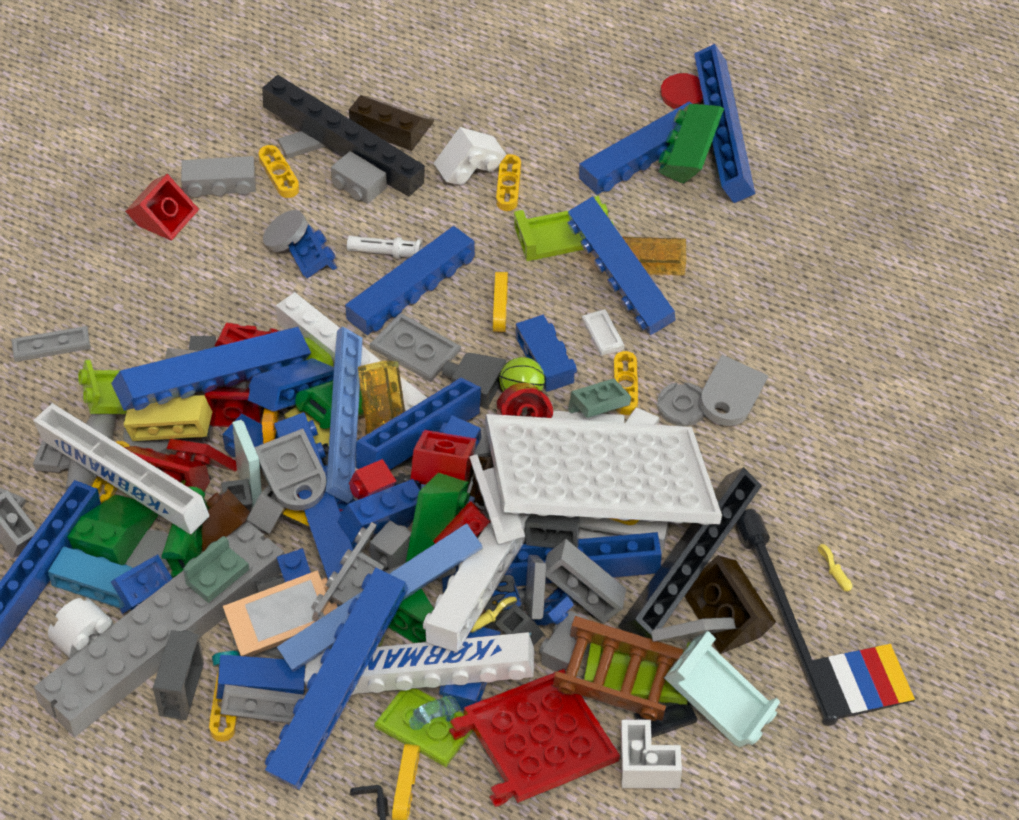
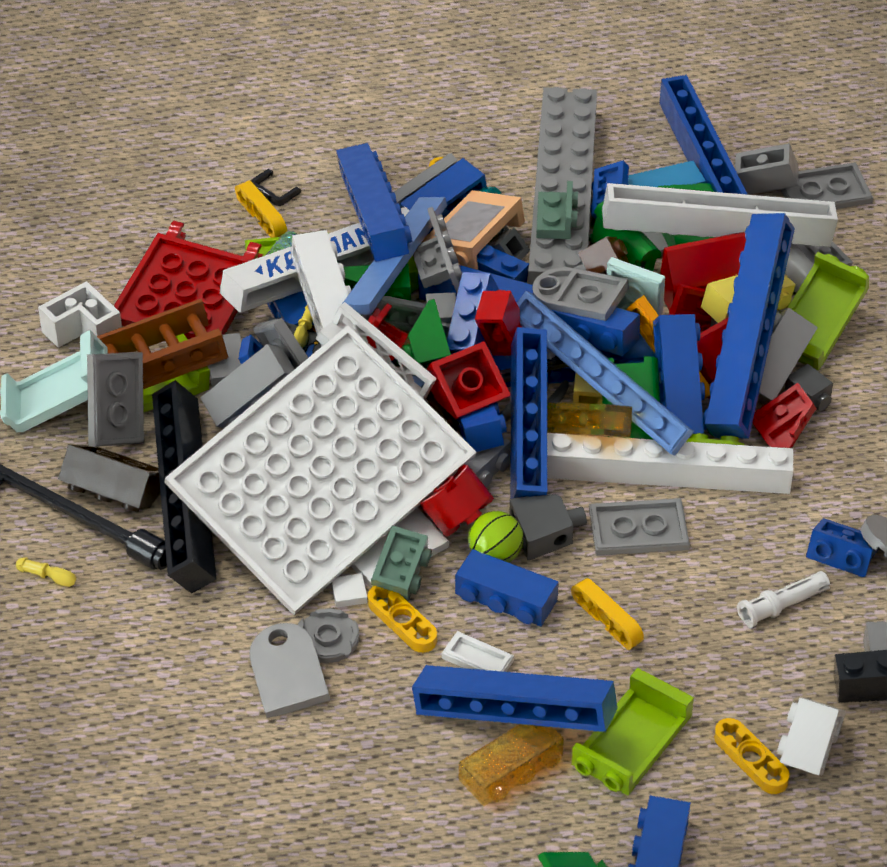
camera: 140 degrees right, 5 degrees down
(78, 626) = (614, 140): white brick -> none
(178, 674) = (506, 159): dark grey window -> none
(410, 280) = (715, 577): blue brick -> none

